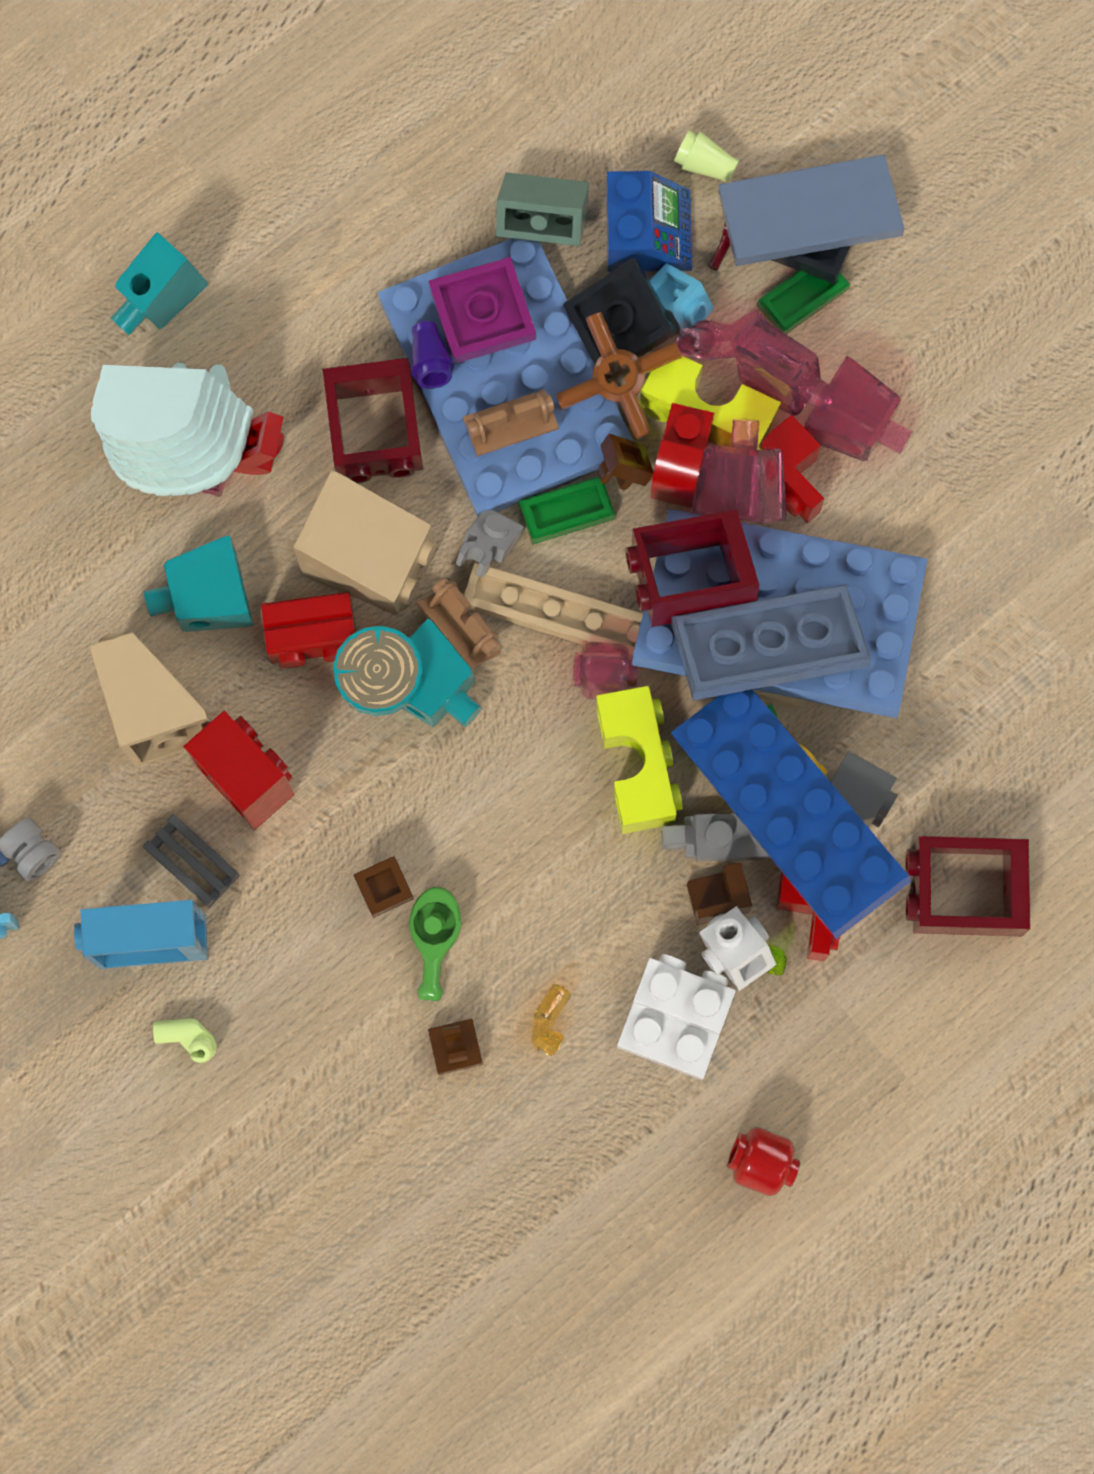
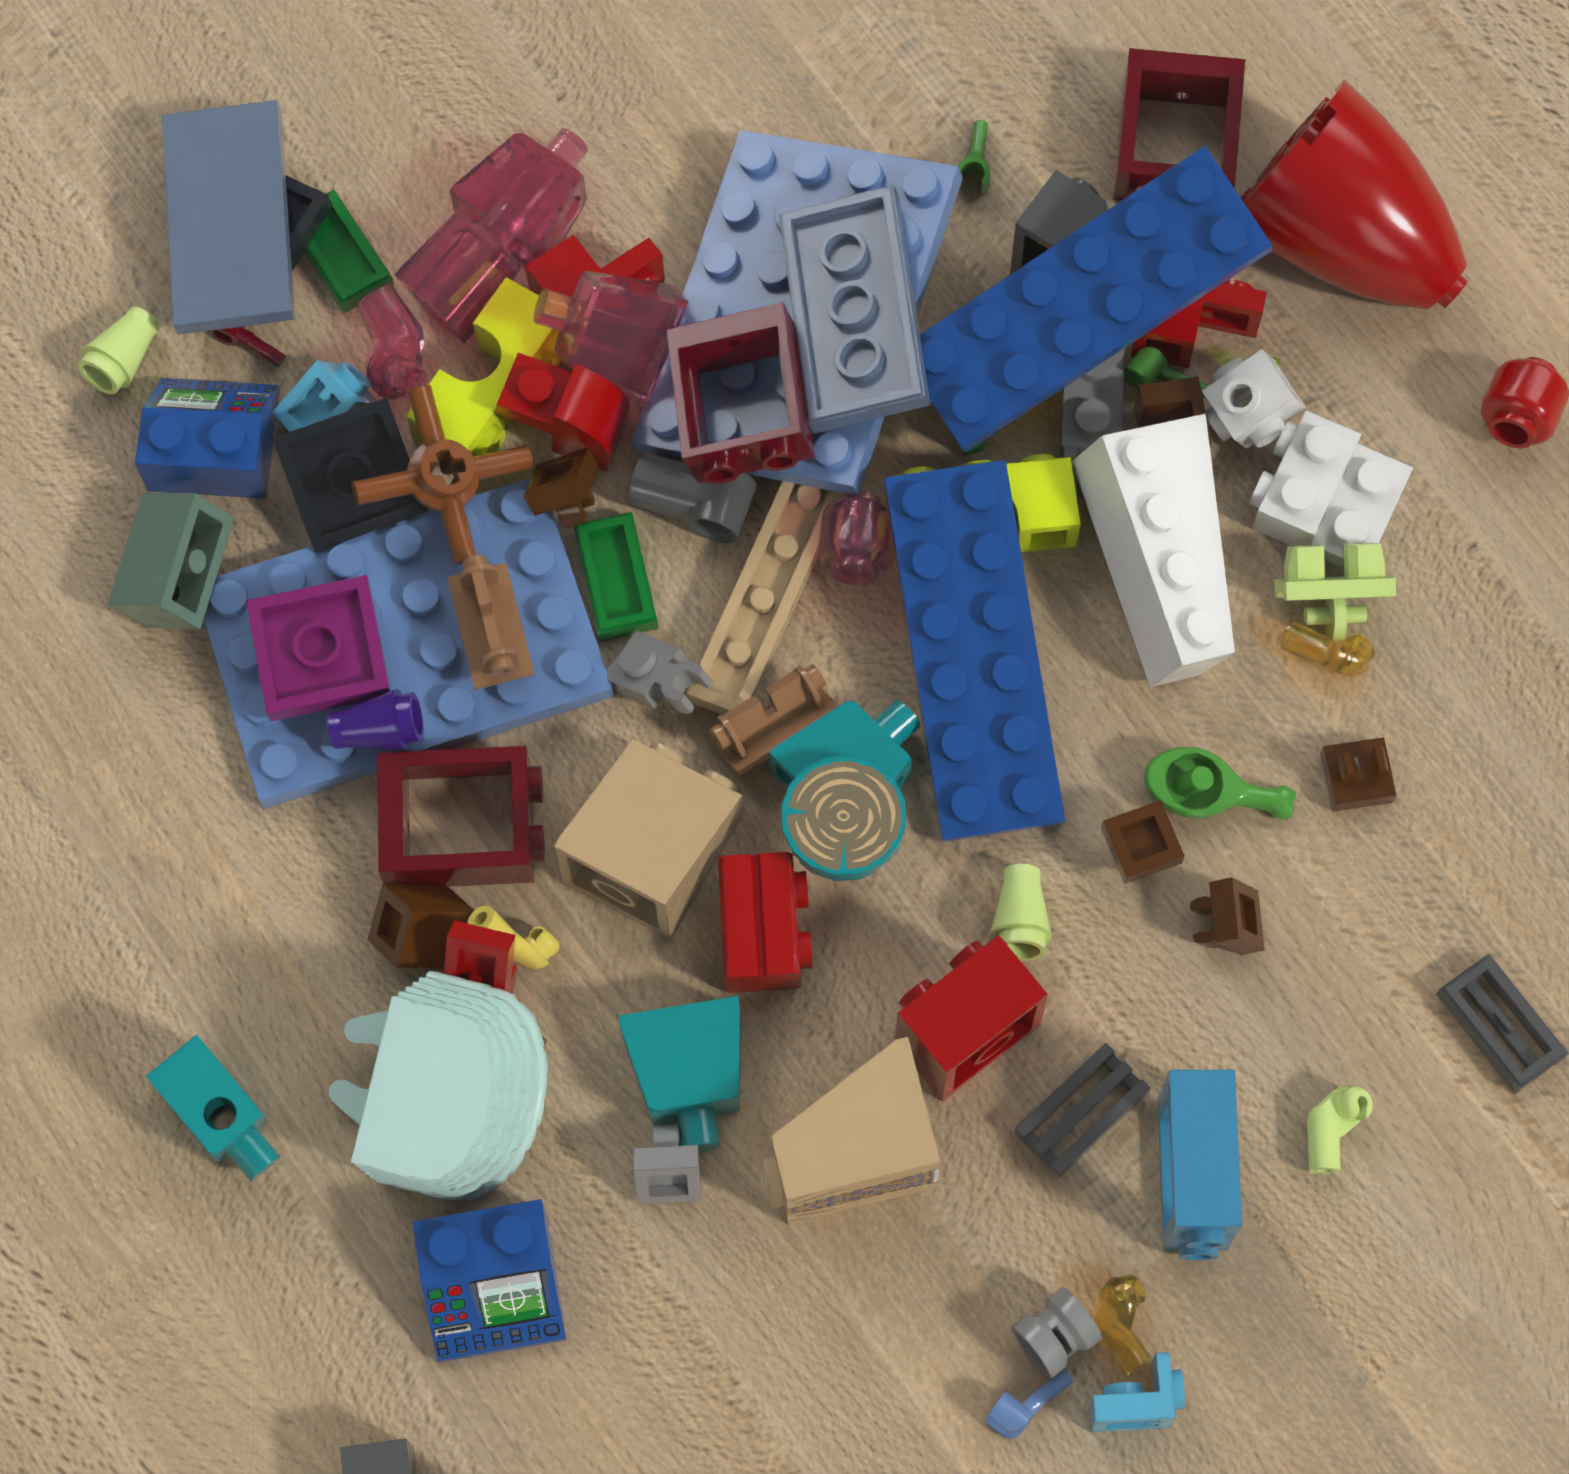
camera: 85 degrees left, 5 degrees down
(41, 891) = (1115, 1319): none -> clear yellow arm
(53, 476) = (489, 1280): none -> blue slope
(132, 582) = (667, 1169): none -> light grey tile
(240, 1184) = (1485, 1040): none -> dark grey tile
(286, 468) = (528, 952): none -> light yellow arm
(299, 402) = (414, 923): none -> reddish brown panel
(329, 807) = (1022, 913): none -> yellowish green cone
(334, 957) = (1235, 917): none -> reddish brown tile
(521, 756) = (973, 651): none -> blue plate
(591, 1019) = (1362, 578): none -> yellowish green hips
(615, 572) = (707, 508): none -> dark grey piece
(617, 886) = (1162, 543): none -> white wedge
(768, 875) = (1151, 365): none -> bright green hand
(908, 1020) = (1359, 208): none -> red cylinder
(929, 737) = (975, 160): none -> bright green hand

